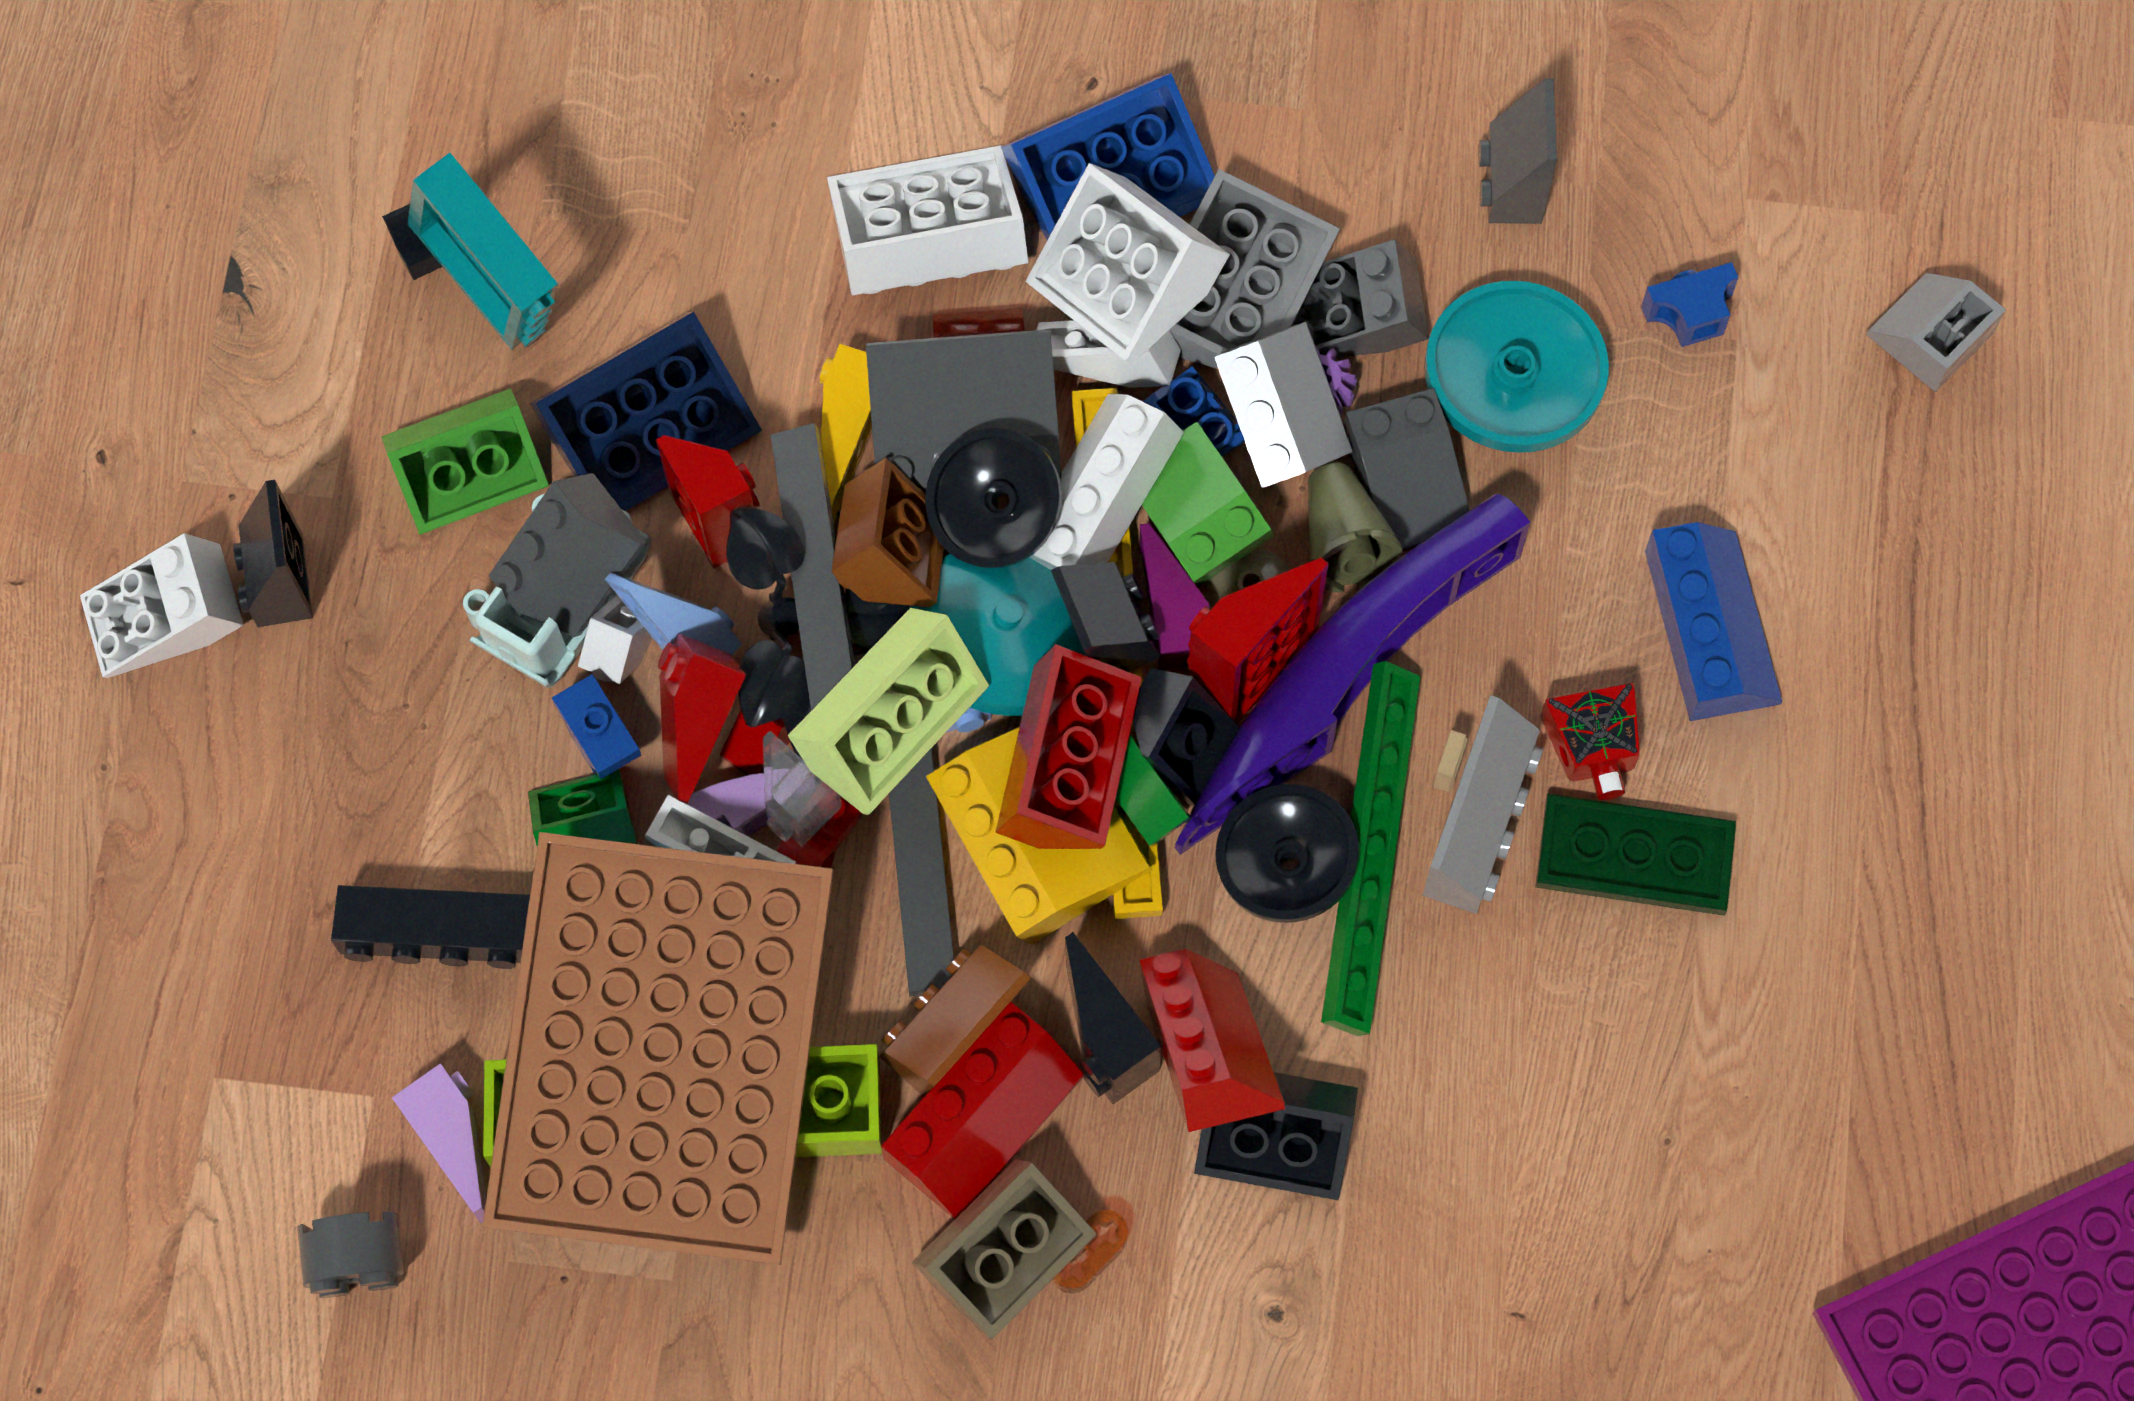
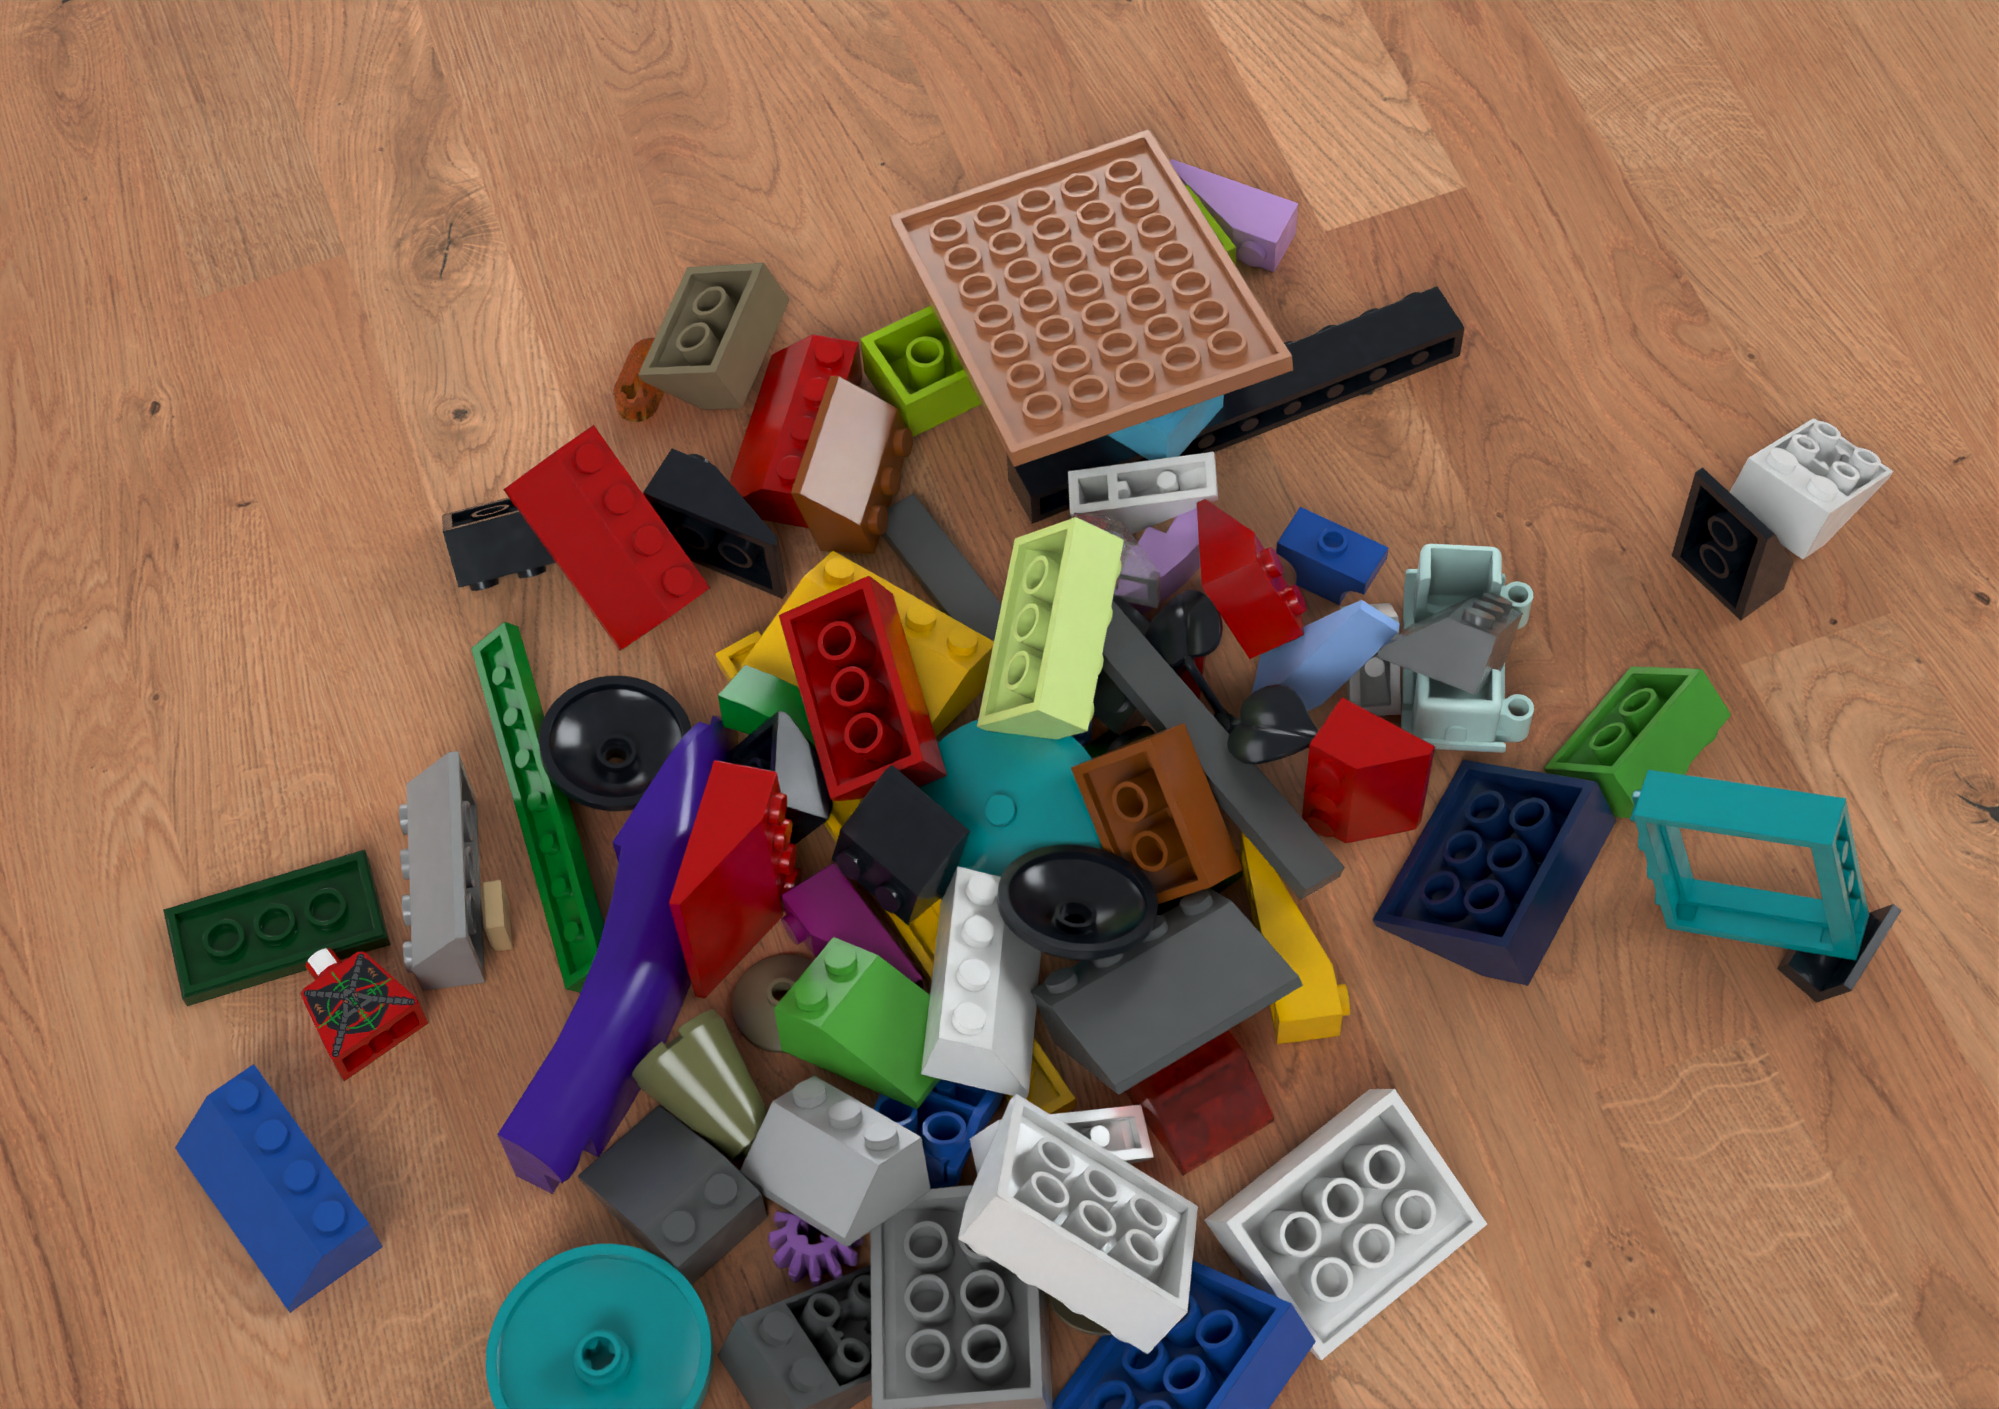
camera: 155 degrees right, 10 degrees down
(350, 1252) = (1251, 95): dark grey brick -> none
(584, 809) = (1290, 472): green slope -> none

